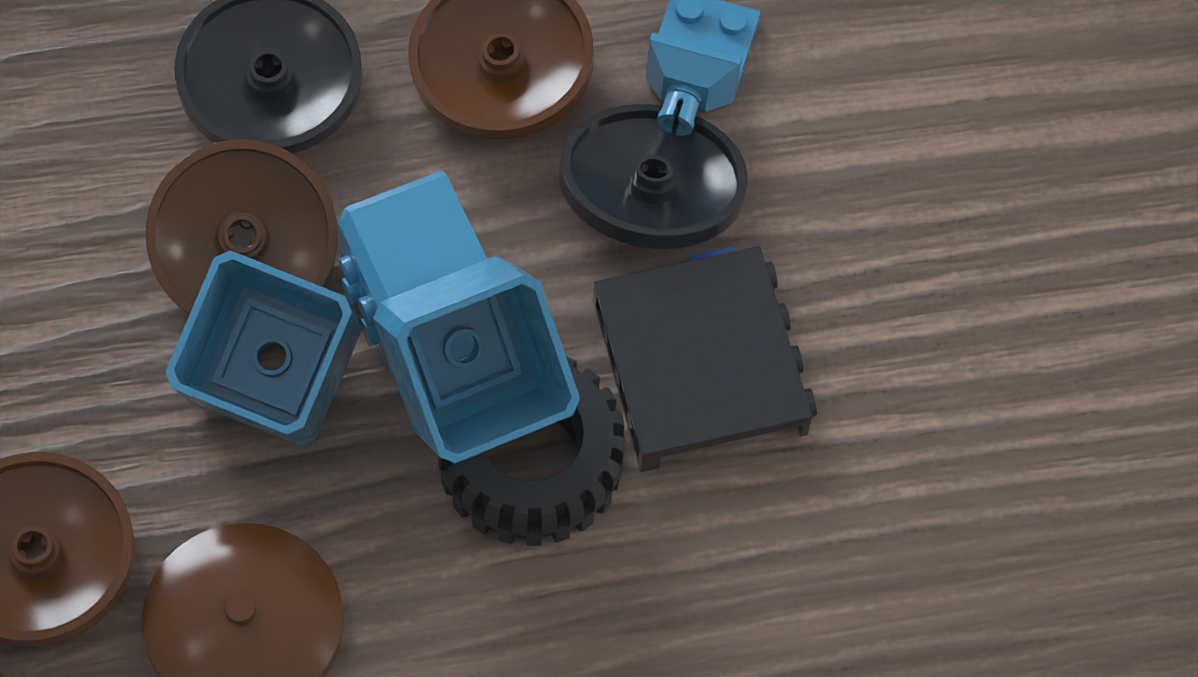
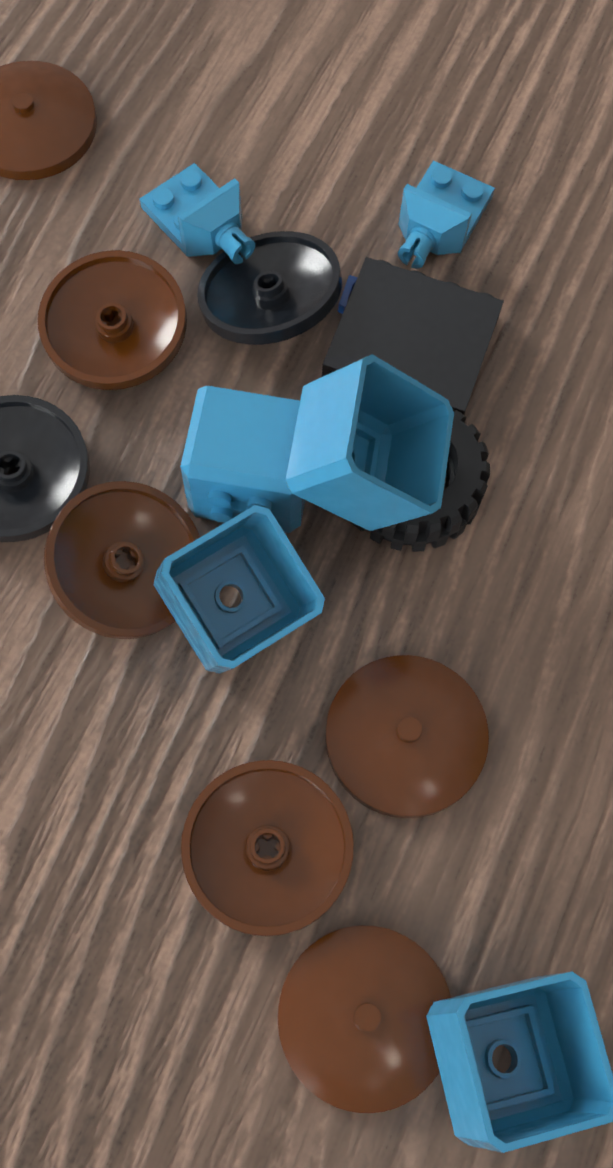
camera: 55 degrees left, 5 degrees up
(891, 293) = (440, 213): none -> dark azure plate

